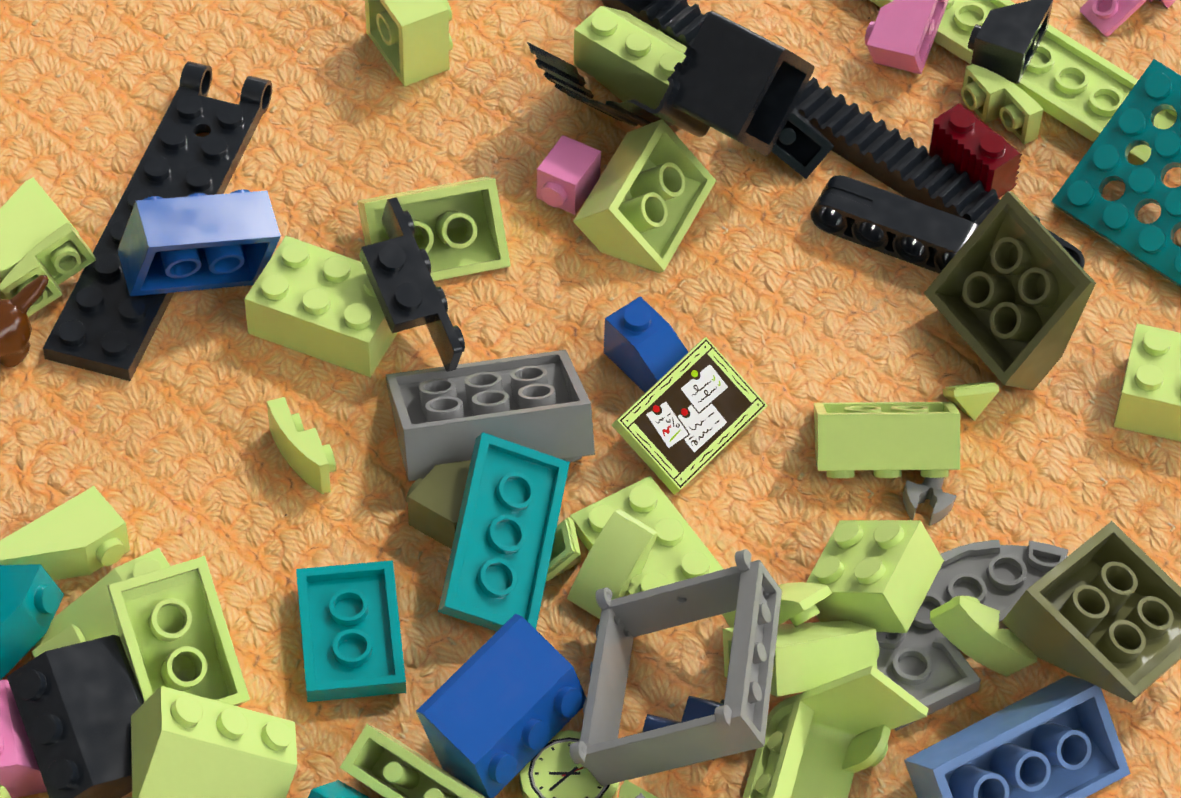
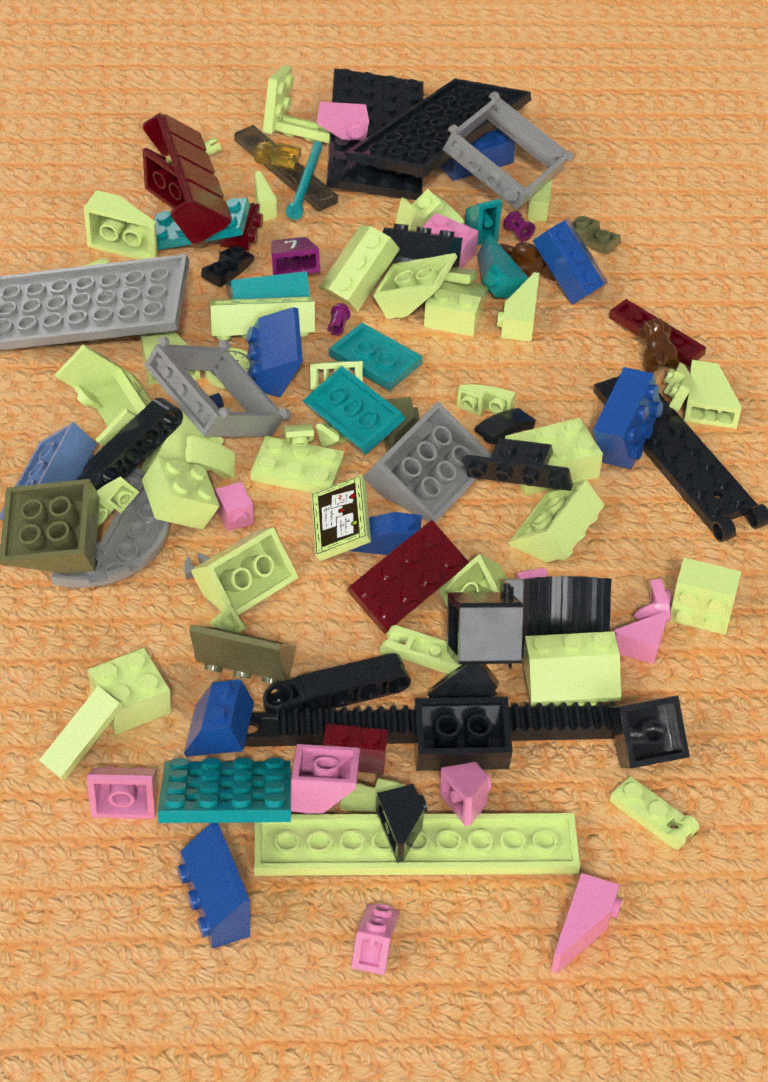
camera: 135 degrees right, 5 degrees down
(323, 737) = (340, 314): none -> magenta pin
(325, 392) = (504, 424): none -> black slope
(449, 635) = (314, 366): none -> yellowish green slope
(452, 66) = (660, 601): none -> bright pink plate
(506, 51) = (642, 638): none -> bright pink slope
(701, 276) = (407, 576): none -> dark red plate
(771, 208) = (419, 649): none -> yellowish green plate
(803, 533) = (235, 506): none -> bright pink brick
(861, 67) = (462, 732): none -> black slope
(923, 667) = (133, 443): none -> black piece
(1049, 124) = (322, 777): none -> bright pink slope
(1121, 265) = (220, 720): none -> blue slope

